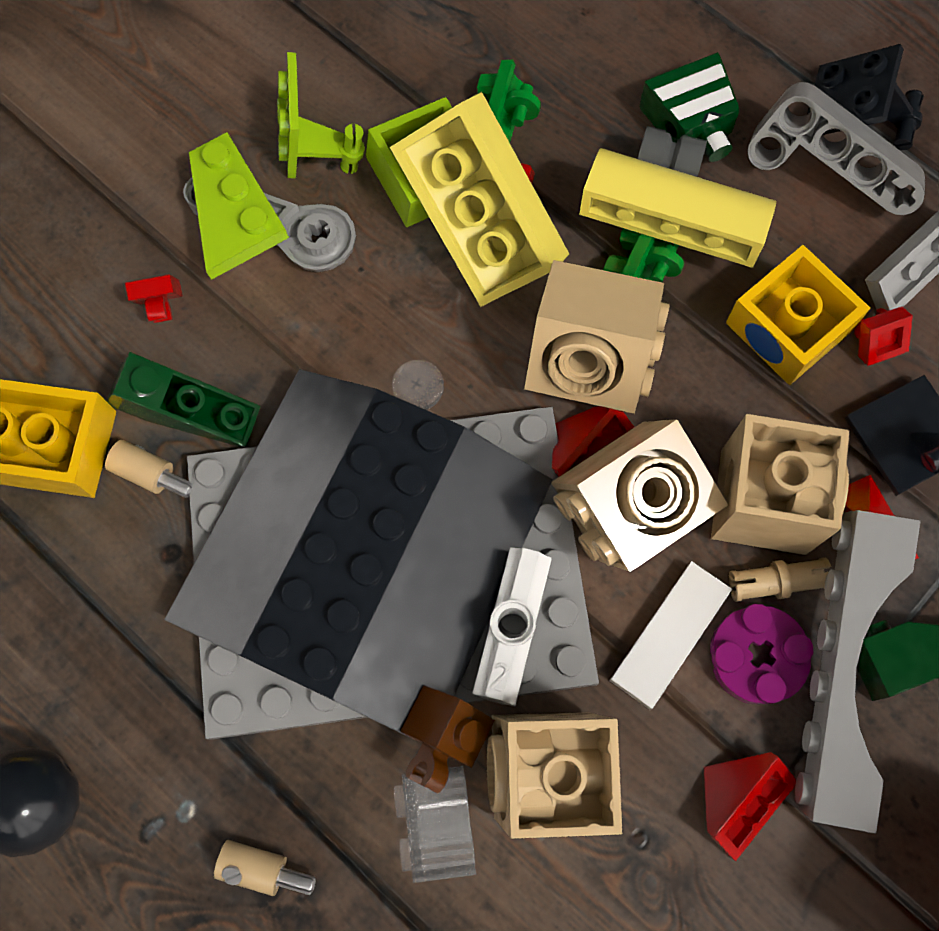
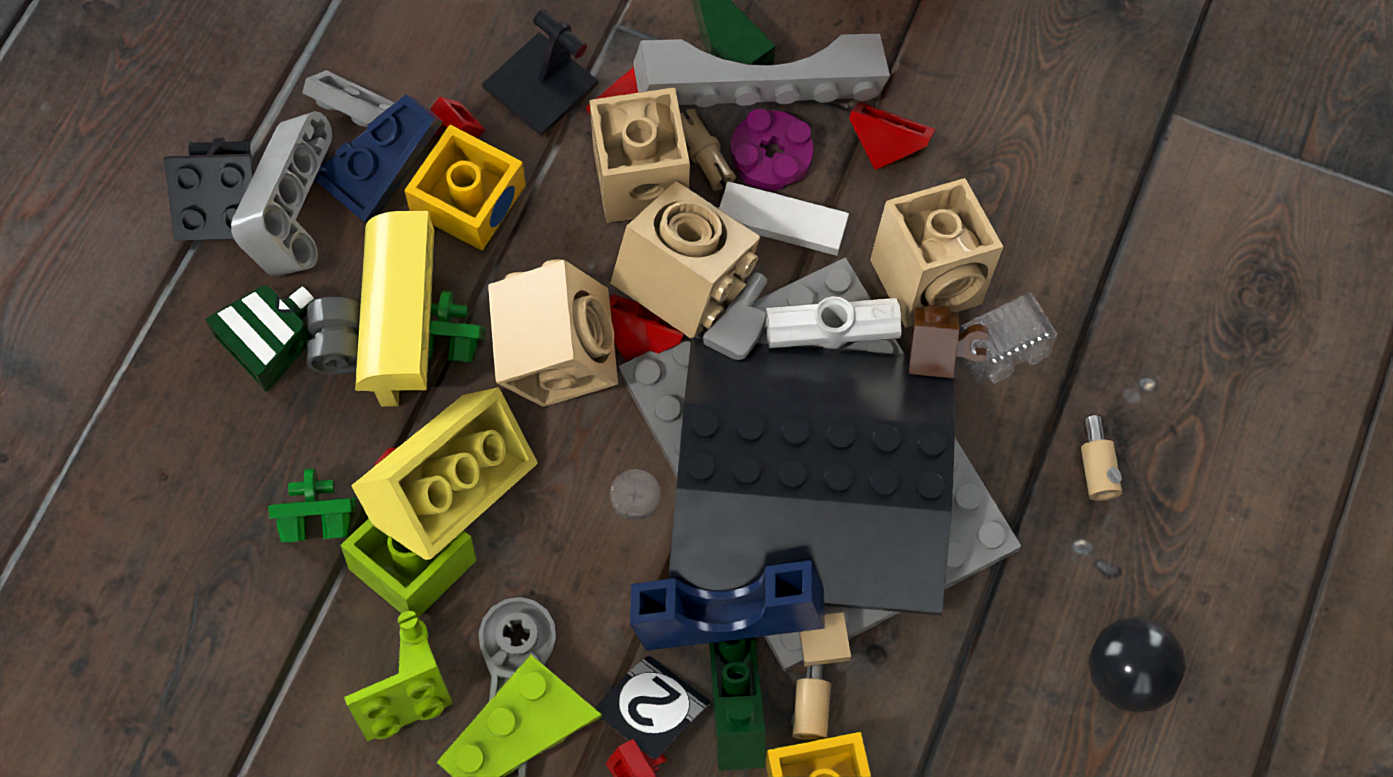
camera: 115 degrees left, 5 degrees down
(189, 494) = (826, 644): none -> tan tile
(205, 327) = (651, 706): none -> sticker
(241, 429) = (677, 615): none -> dark blue arch
(546, 530) = (740, 324): none -> light grey piece
(854, 244) = (376, 162): none -> dark blue wing

